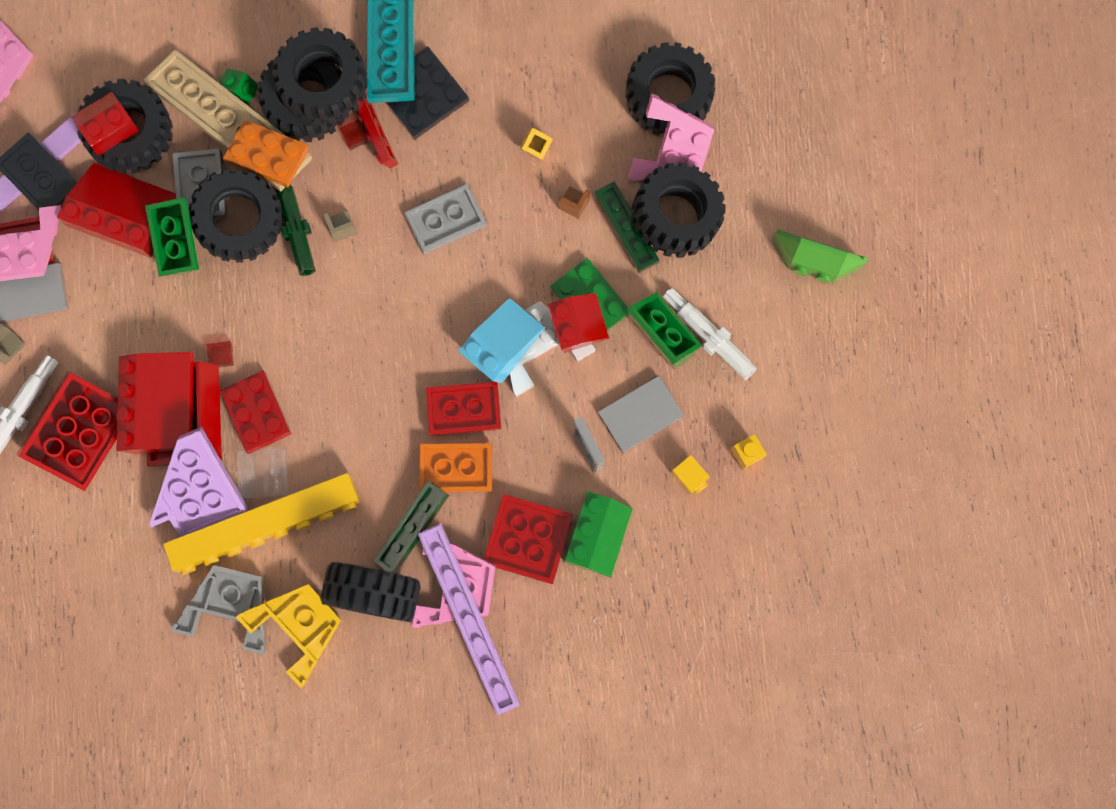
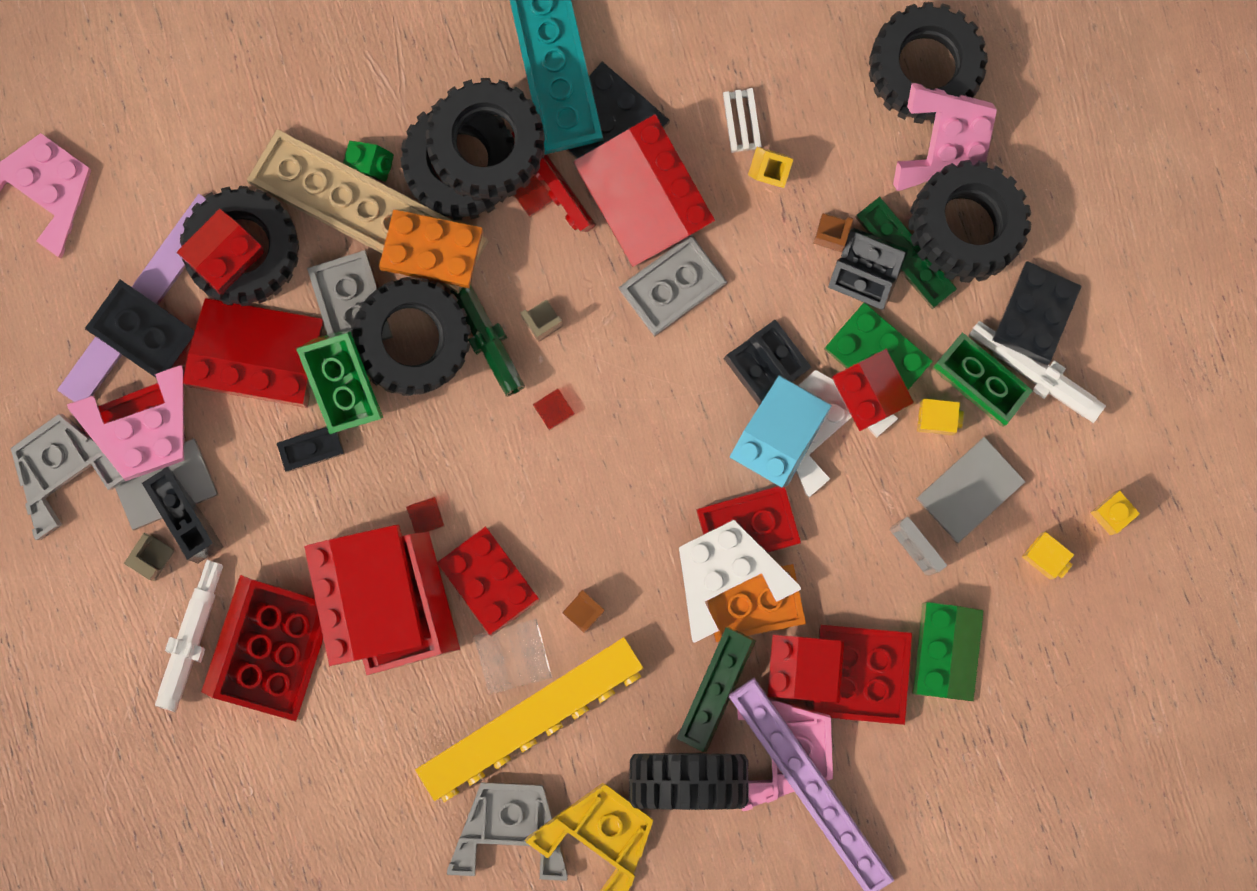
camera: 10 degrees left, 5 degrees up
(33, 318) = (182, 516): none -> black slope
(143, 287) = (309, 449): none -> black plate
(196, 487) = (441, 694): lavender wing -> none
(323, 449) = (583, 611): none -> dark orange panel
(335, 293) = (553, 409): none -> clear red tile
(435, 431) = (720, 563): none -> white wing
(437, 142) = (643, 190): none -> slope
(483, 524) = (806, 668): none -> red slope
(502, 283) = (765, 358): none -> black slope
(524, 90) = (738, 95): none -> white tile
(595, 232) = (868, 268): none -> black slope
(627, 353) = (939, 417): none -> yellow brick
(717, 289) = (1037, 313): none -> black plate
(816, 259) = (1153, 248): bright green wedge -> none

